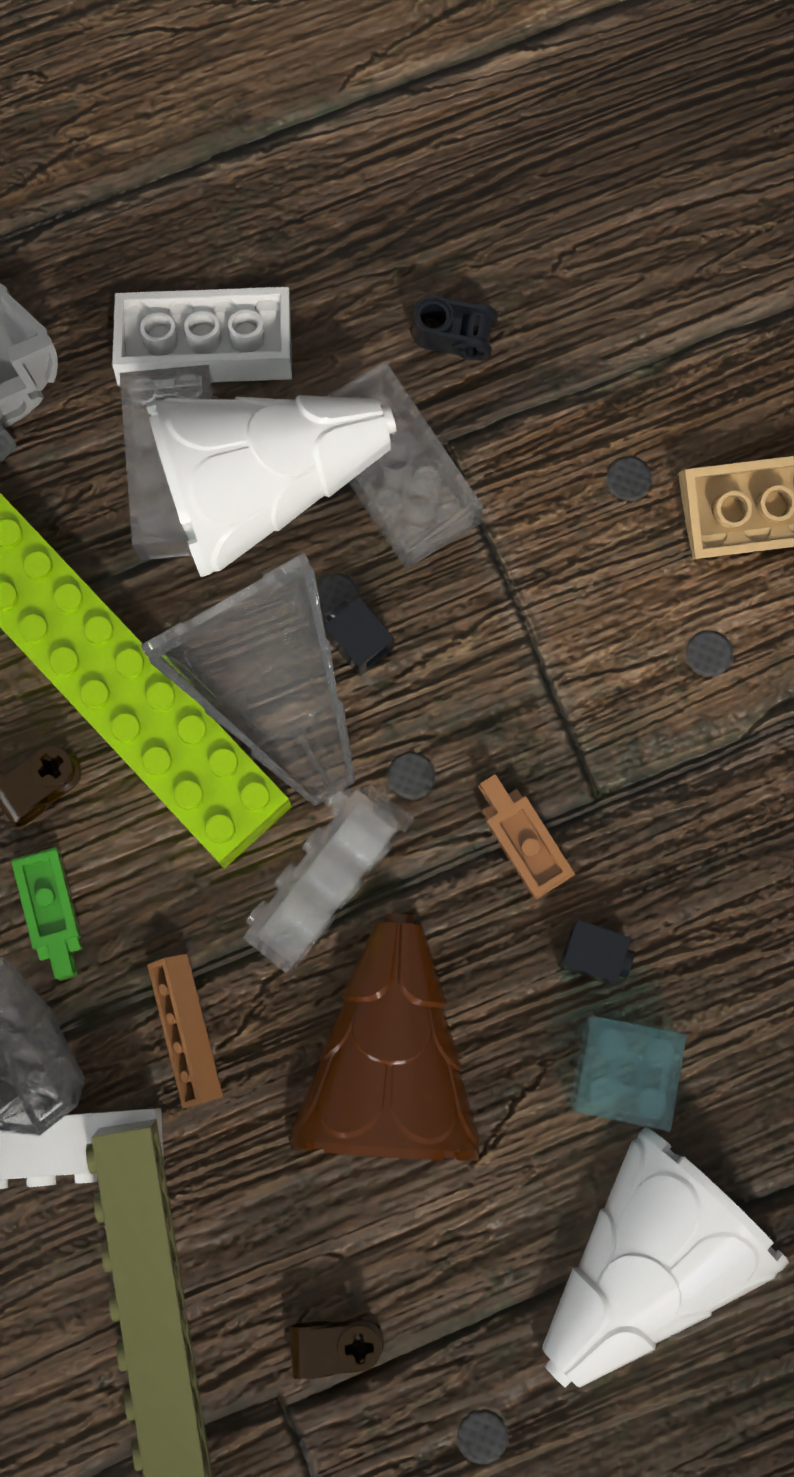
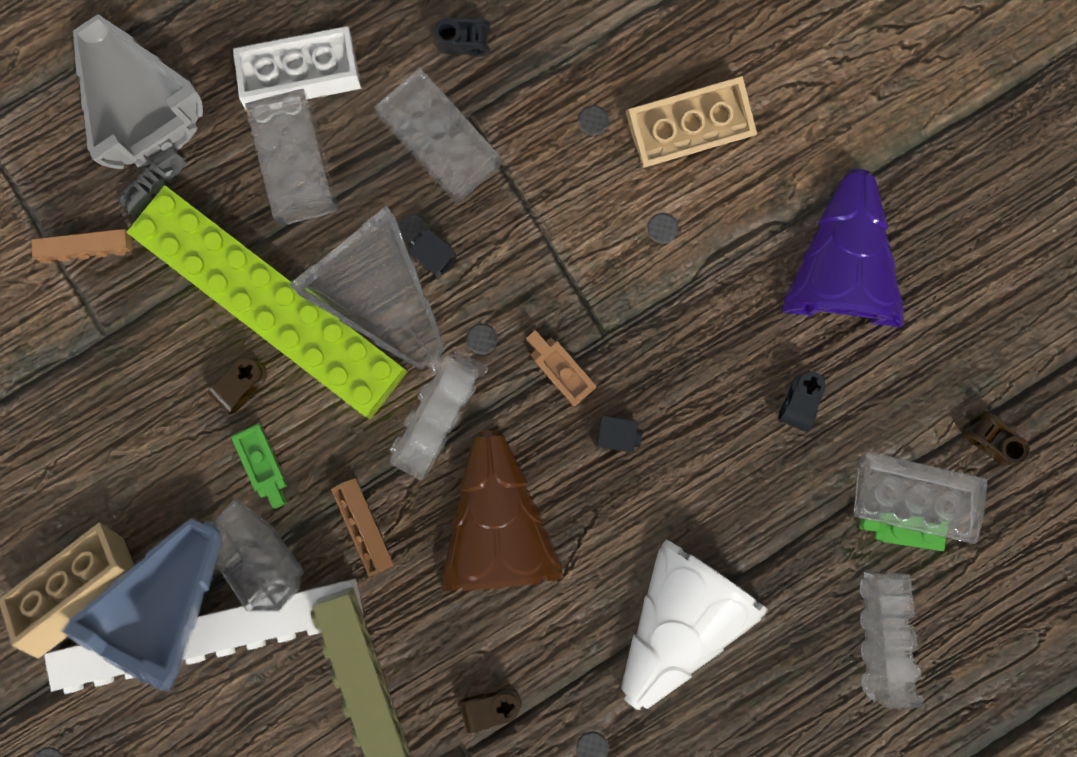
camera: 10 degrees left, 5 degrees up
(260, 462) = (346, 150): white cone -> none
(628, 1072) = (649, 508): clear light blue brick -> none

